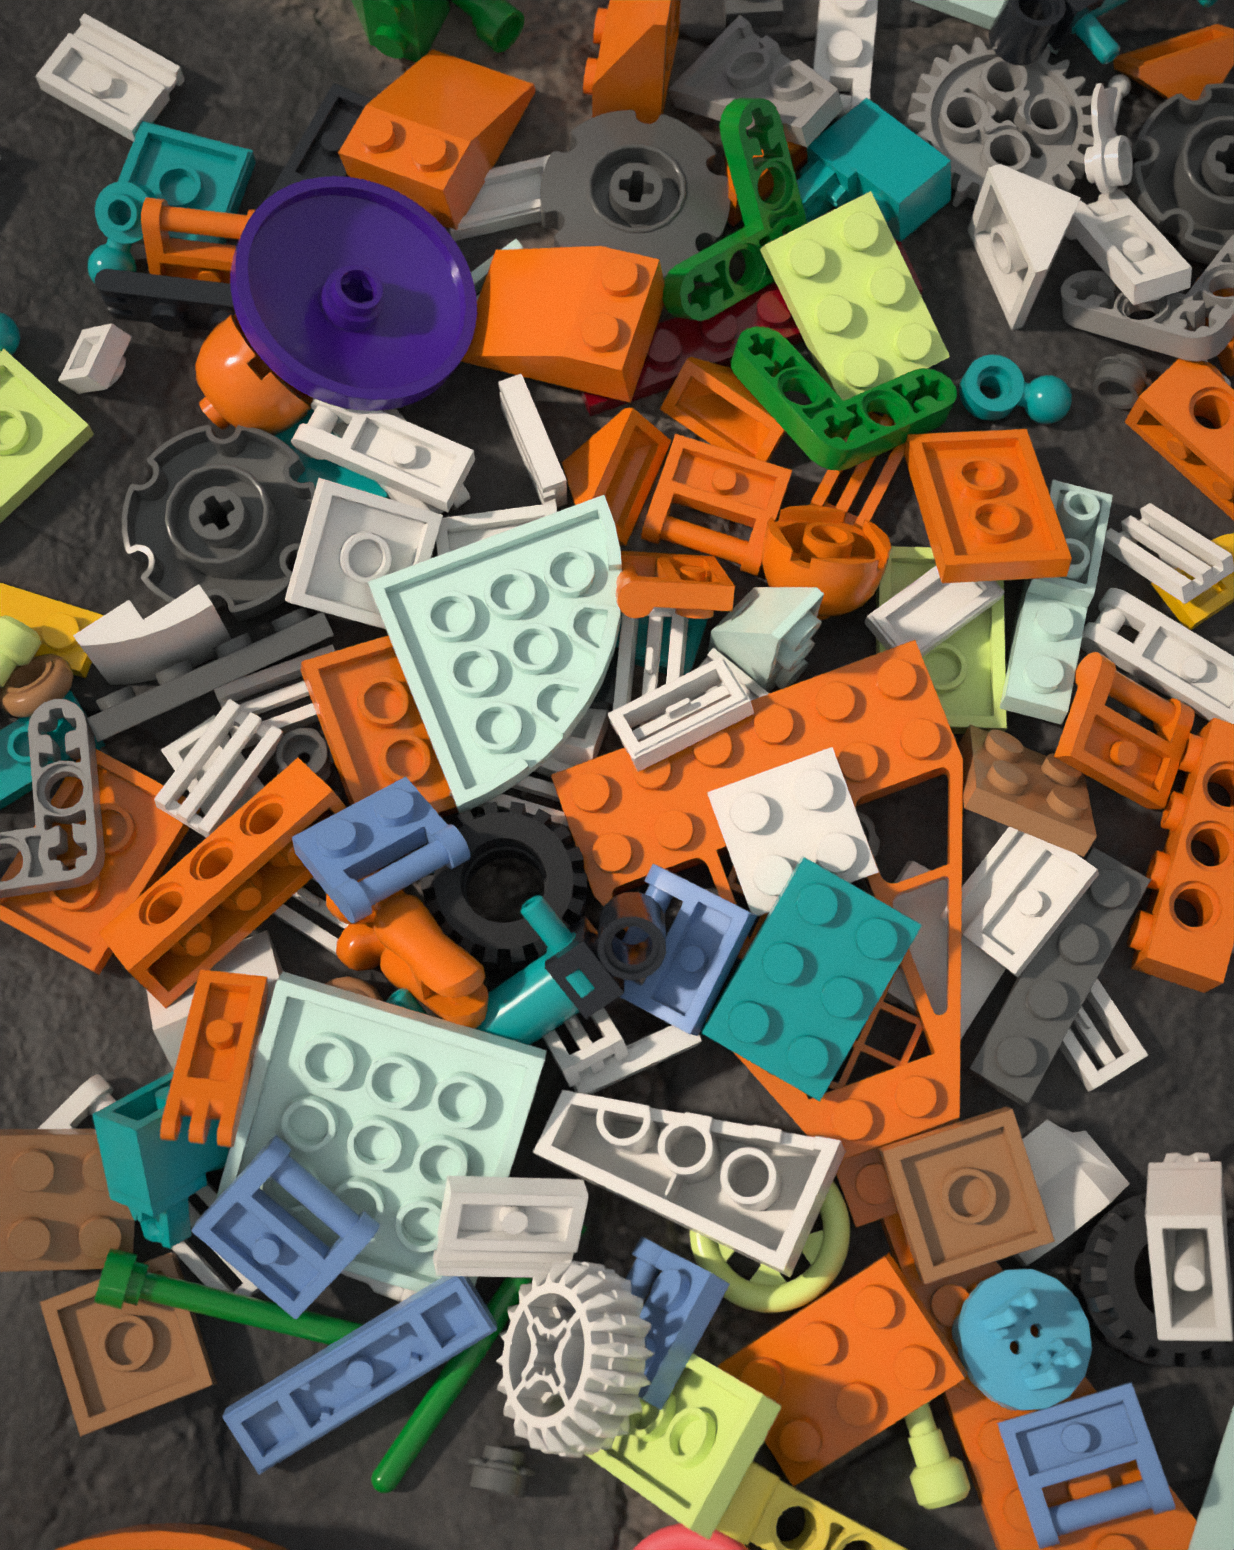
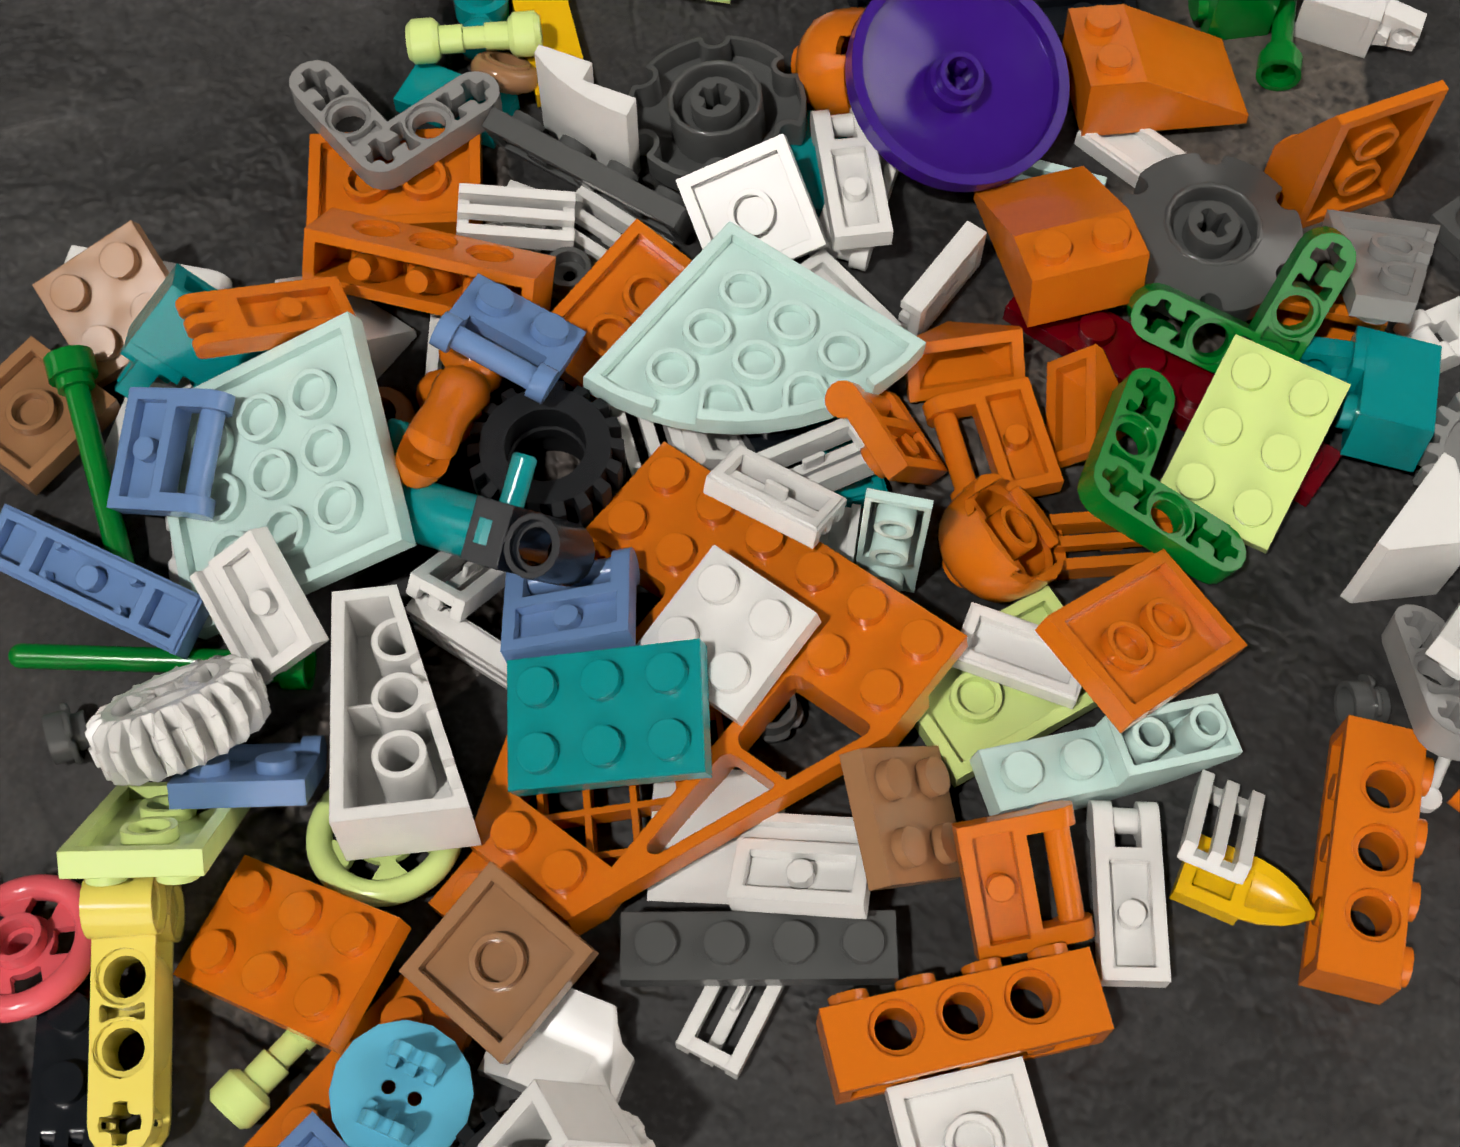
camera: 60 degrees right, 10 degrees down
(1044, 398) = (1292, 650): teal plate -> none

